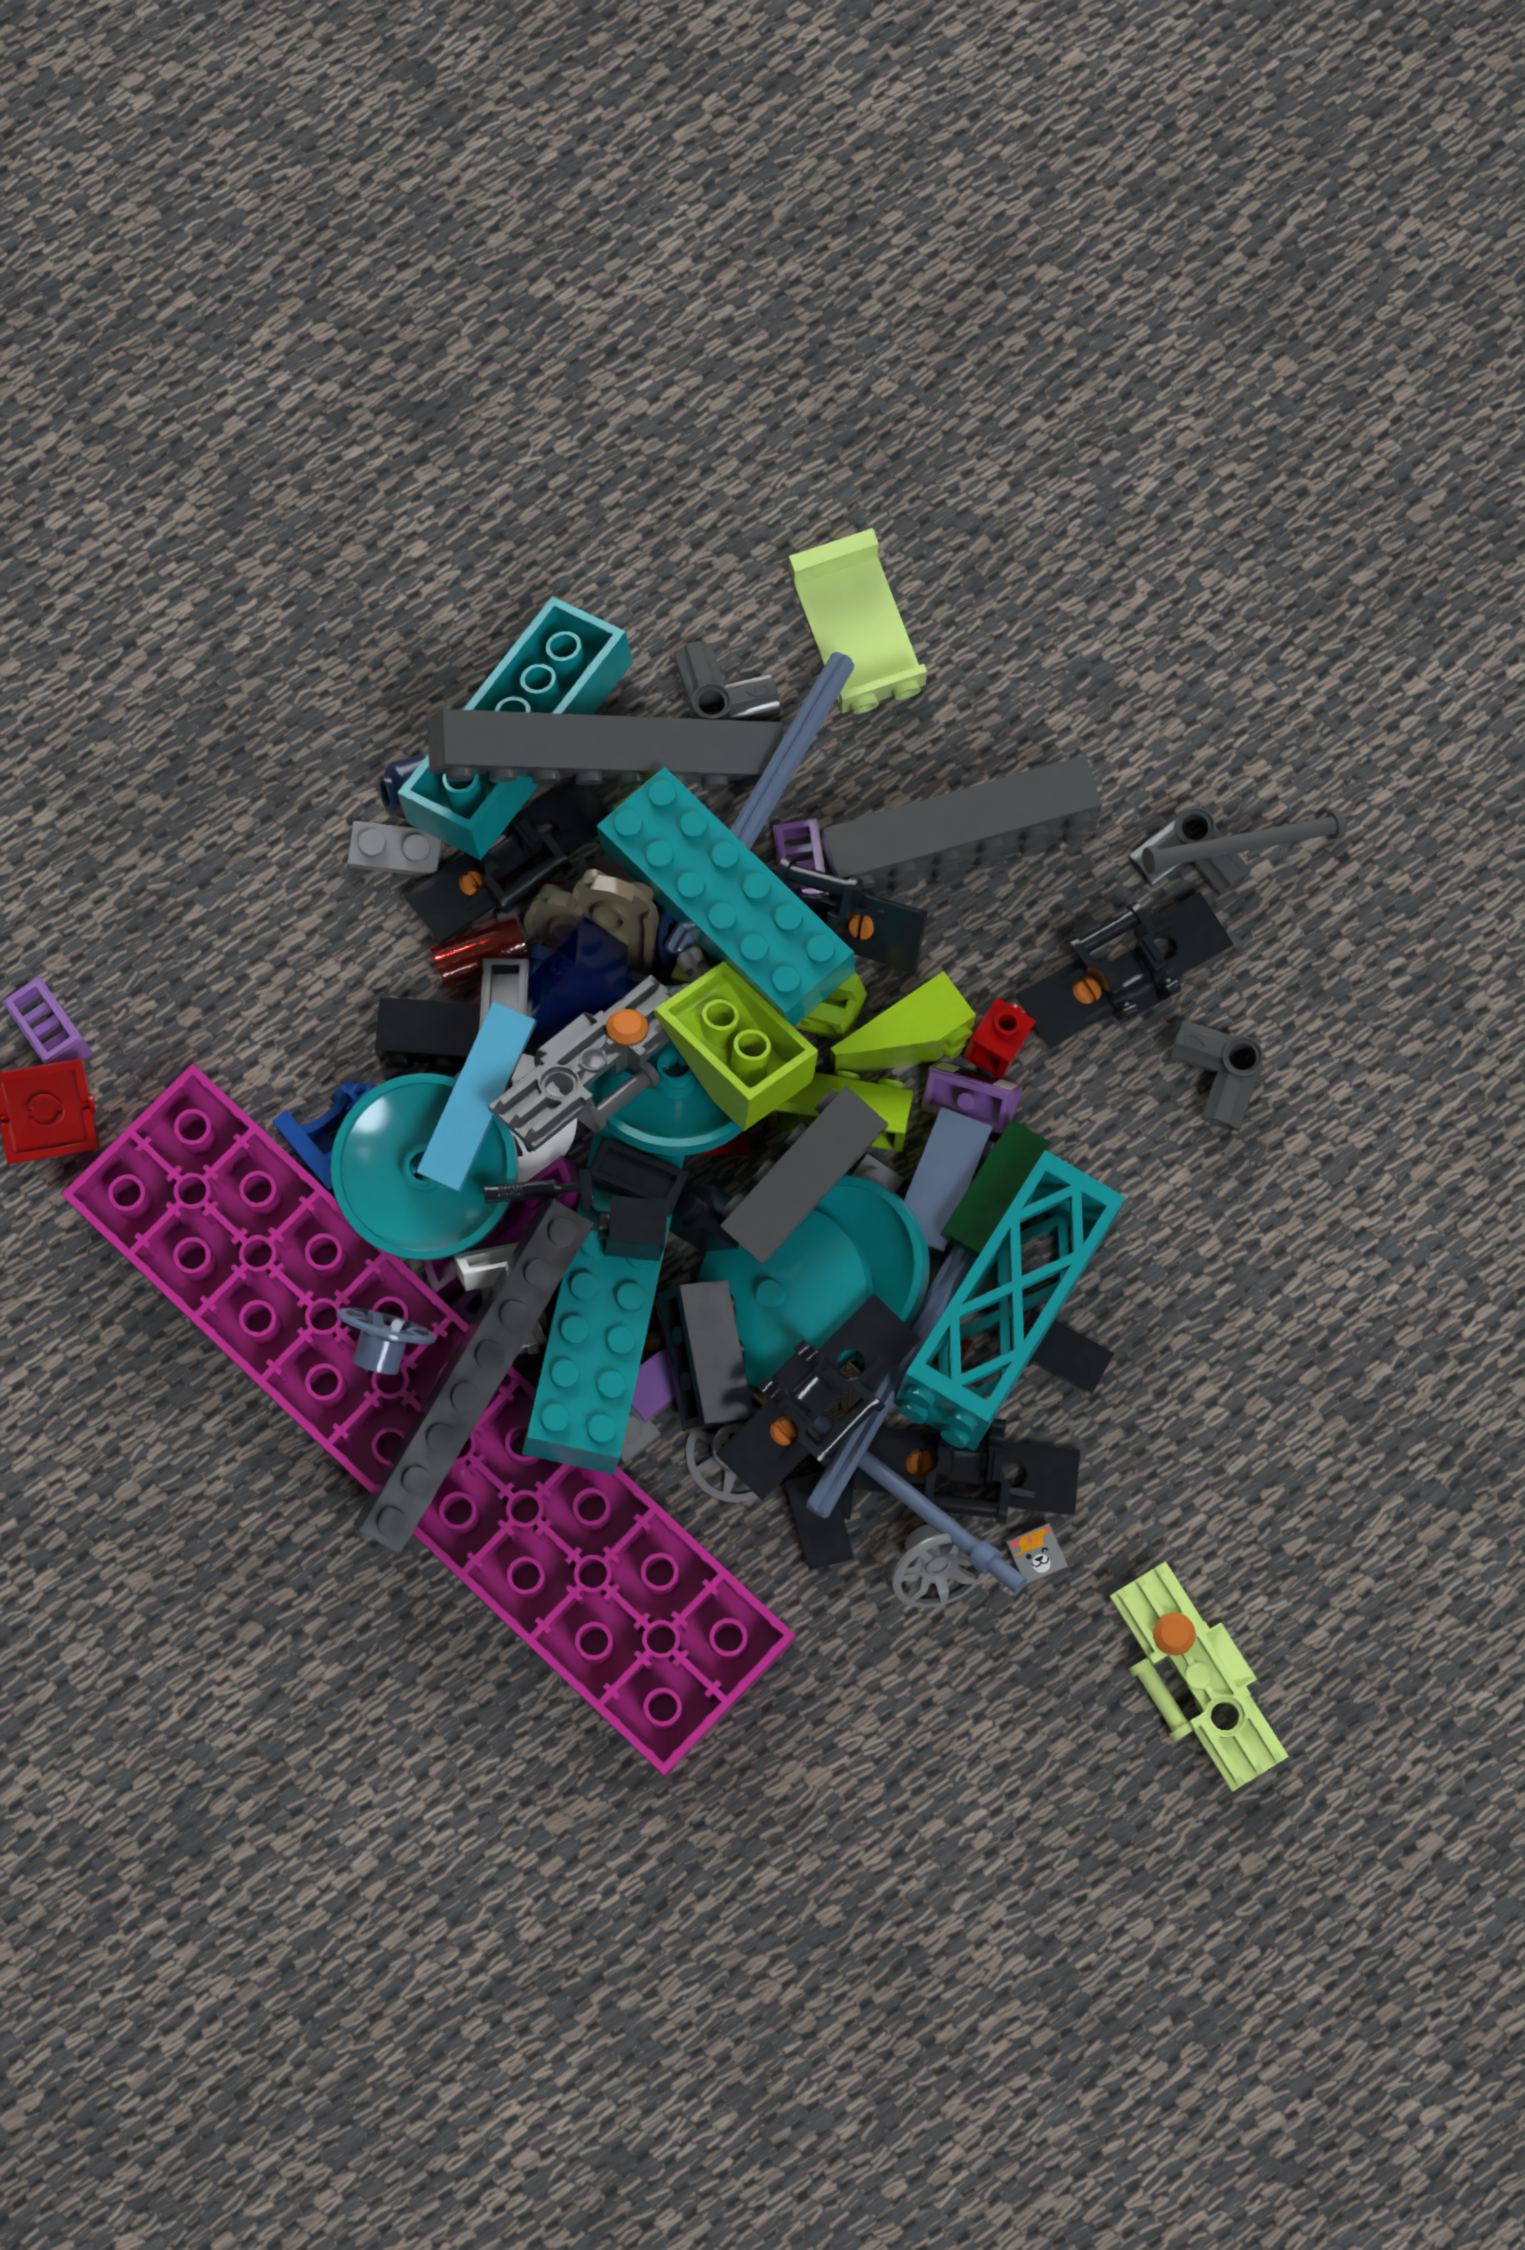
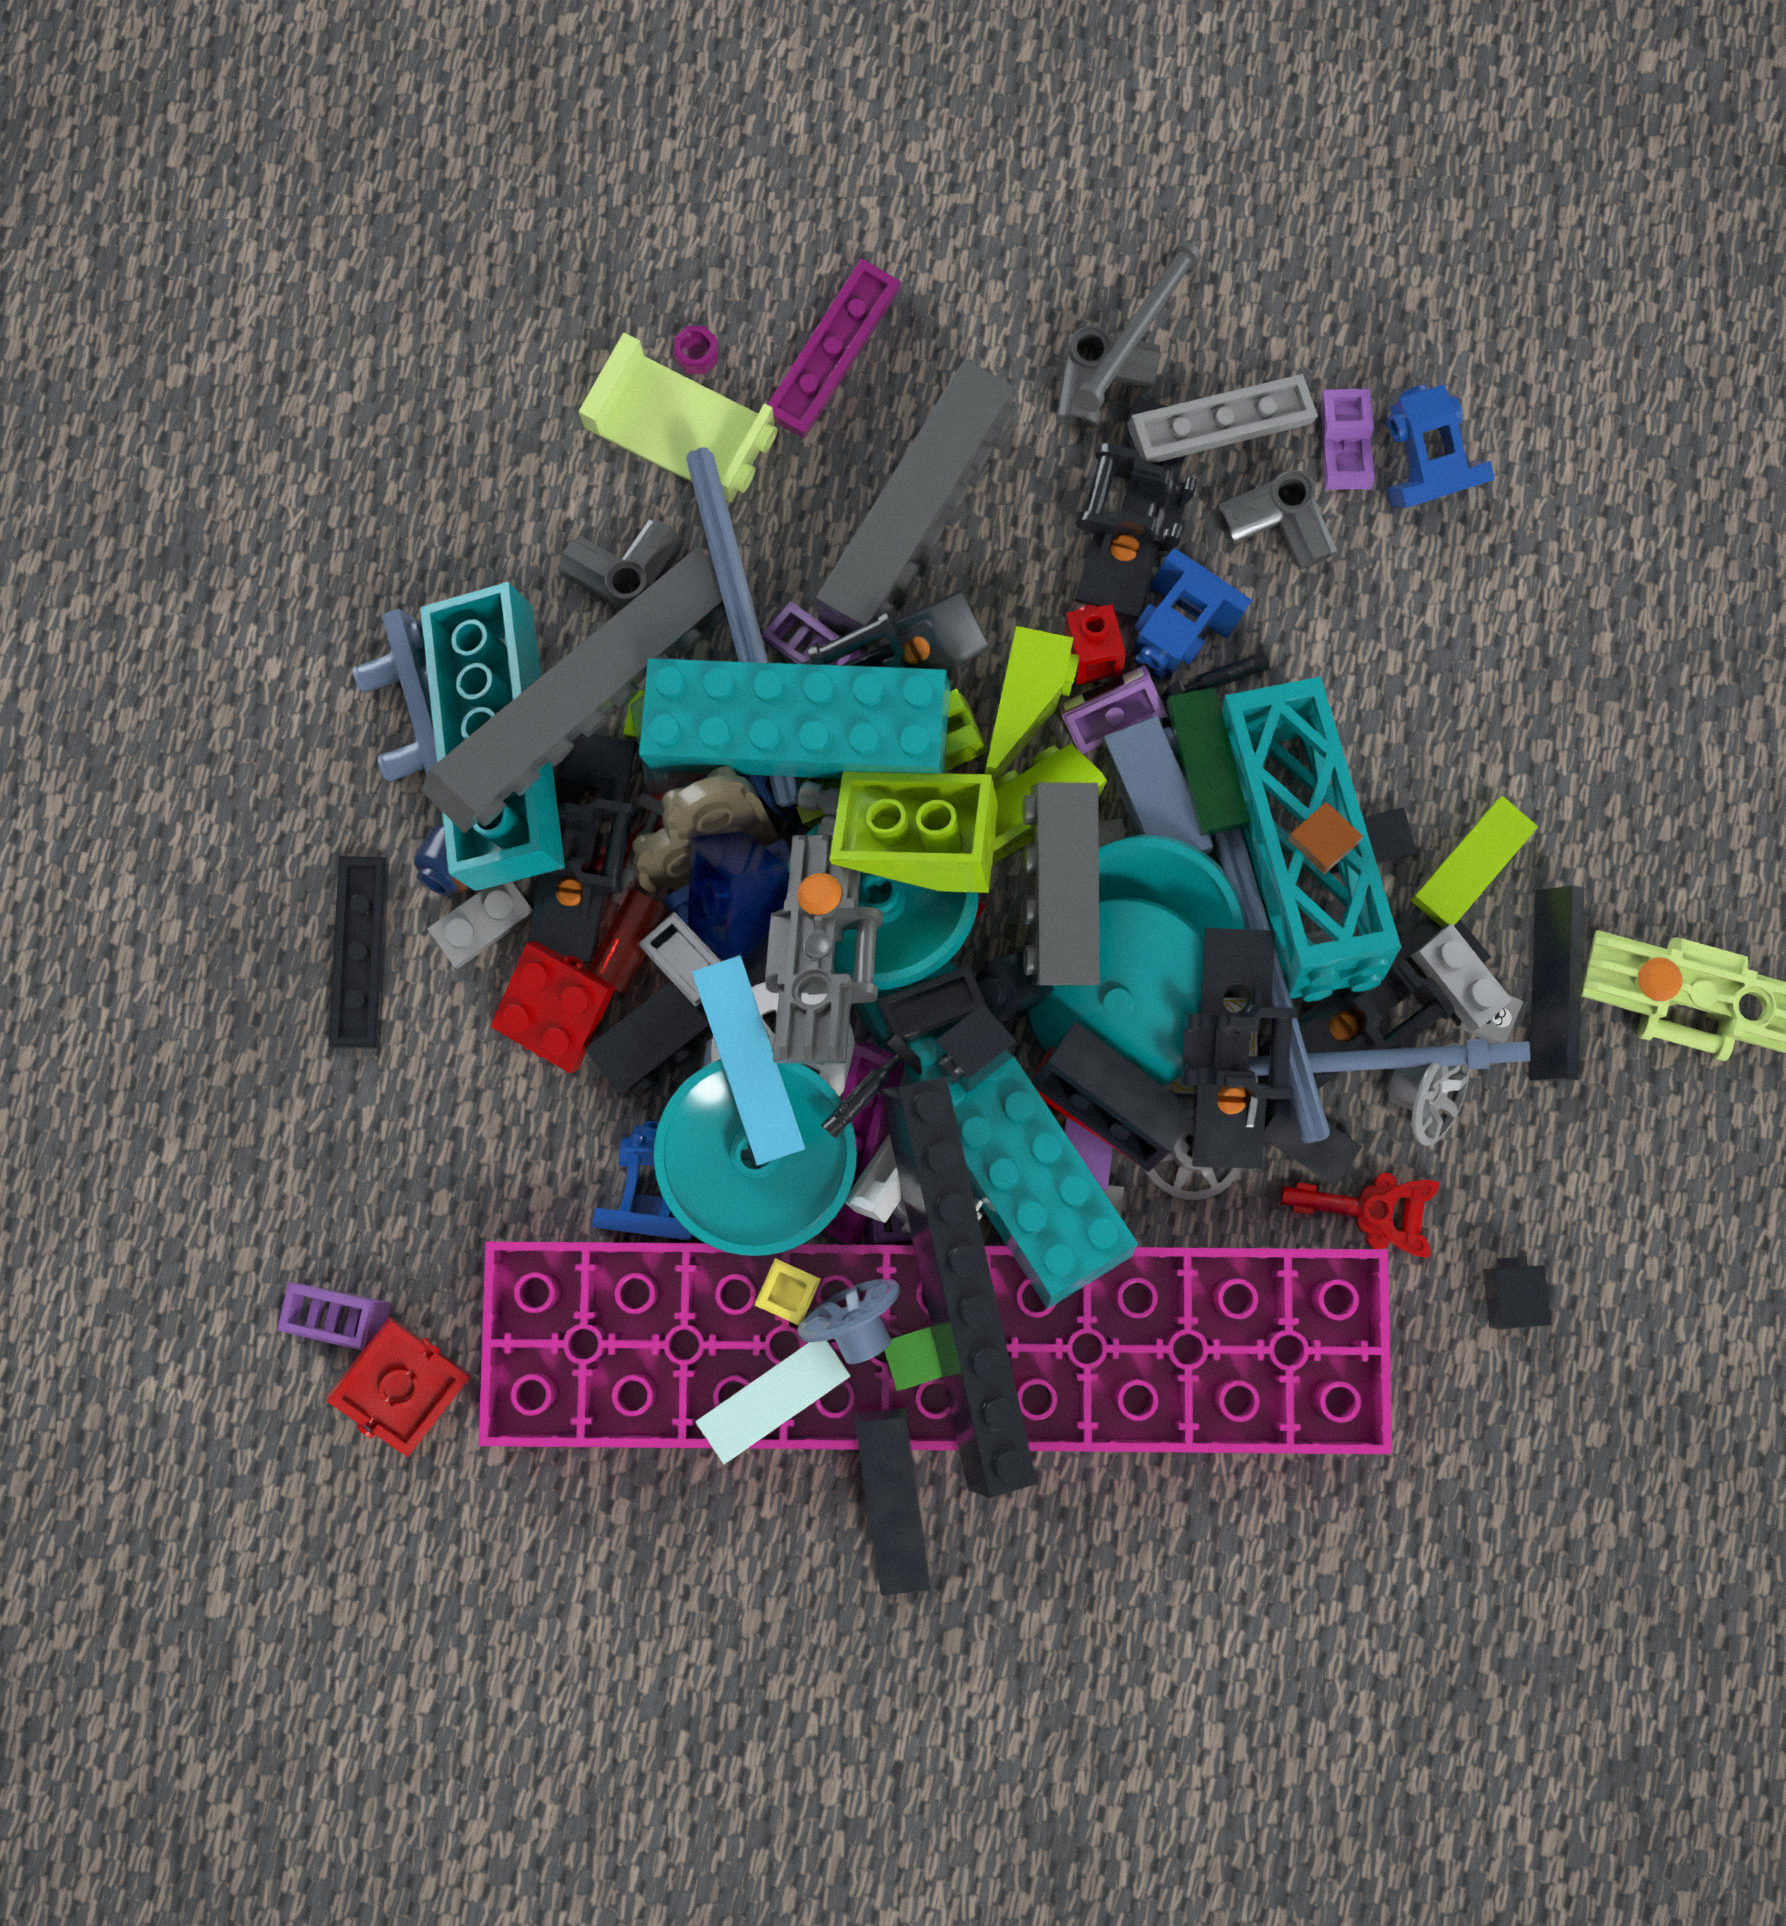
camera: 45 degrees left, 5 degrees up
(282, 1342) = (772, 1399): none -> light aqua tile
(293, 796) = (359, 952): none -> black tile
(297, 1490) = (893, 1501): none -> black tile
(359, 1280) = (787, 1292): none -> light yellow tile
(387, 949) = (552, 1006): none -> red plate
(398, 1402) = (913, 1359): none -> bright green tile
(506, 629) = (407, 665): none -> sand blue plate
(821, 1612) = (1373, 1210): none -> red piece
(863, 1760) = (1516, 1294): none -> black brick
(917, 584) = (696, 350): none -> magenta tile
(1010, 1303) = (1325, 837): none -> dark orange tile
(1015, 667) = (833, 348): none -> magenta plate
(1035, 1504) = (1461, 977): none -> light grey plate
(1052, 1081) = (1170, 637): none -> blue tile
(1073, 1144) = (1221, 676): none -> black piece
(1102, 1575) = (1556, 984): none -> black tile
(1126, 1437) = (1474, 863): none -> lime tile
(1244, 962) = (1222, 419): none -> light grey plate
(1328, 1058) = (1346, 439): none -> medium lavender slope
(1392, 1083) = (1420, 412): none -> blue tile

